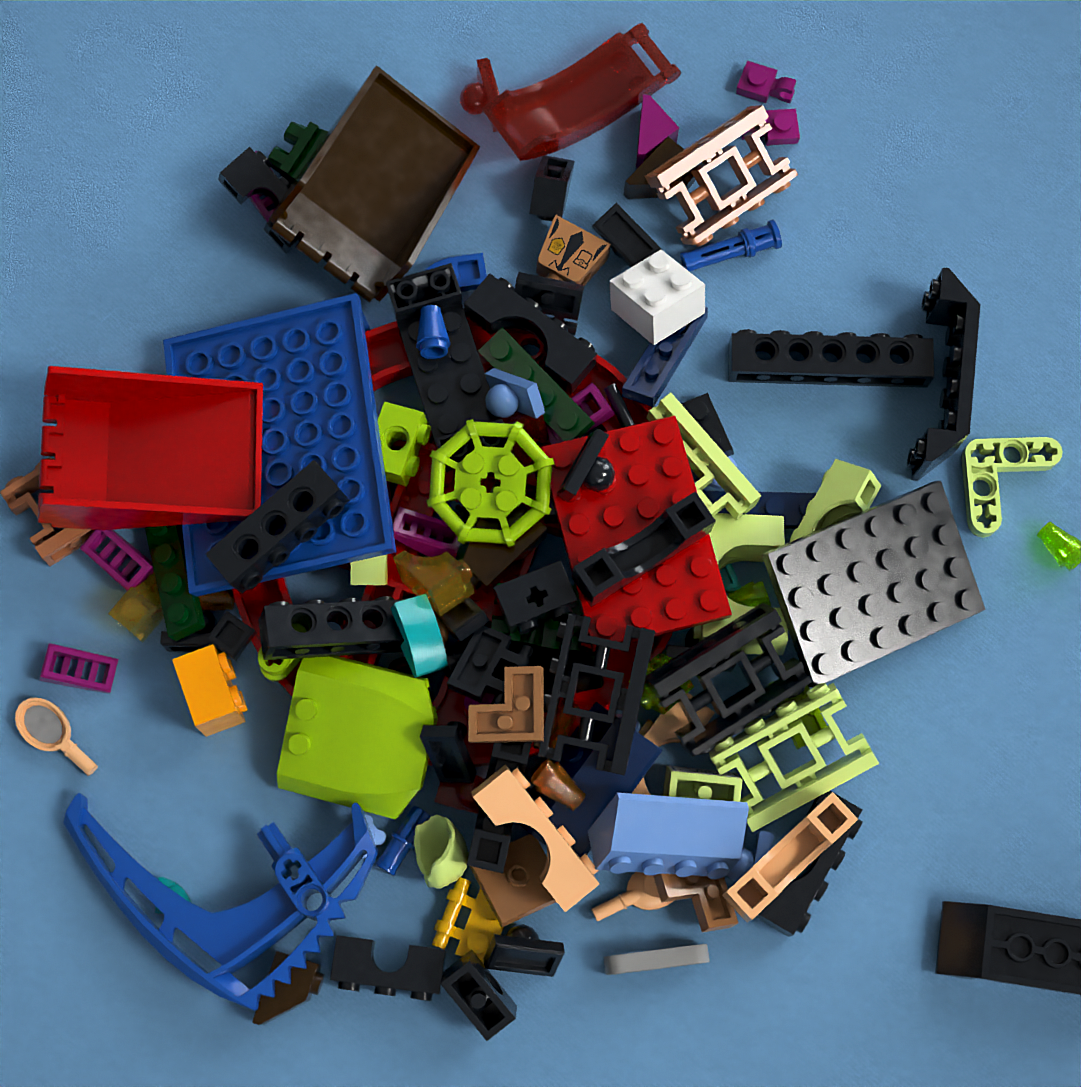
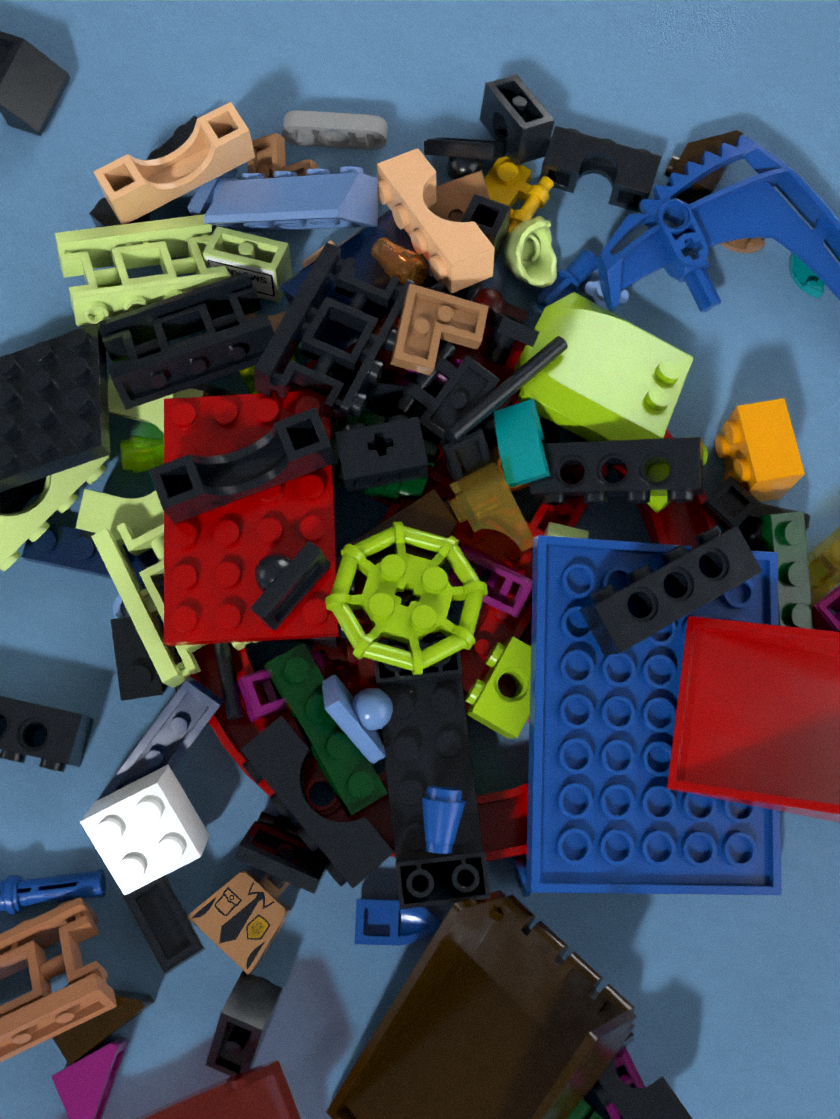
camera: 165 degrees left, 0 degrees up
(439, 677) = (505, 390): none -> black bar

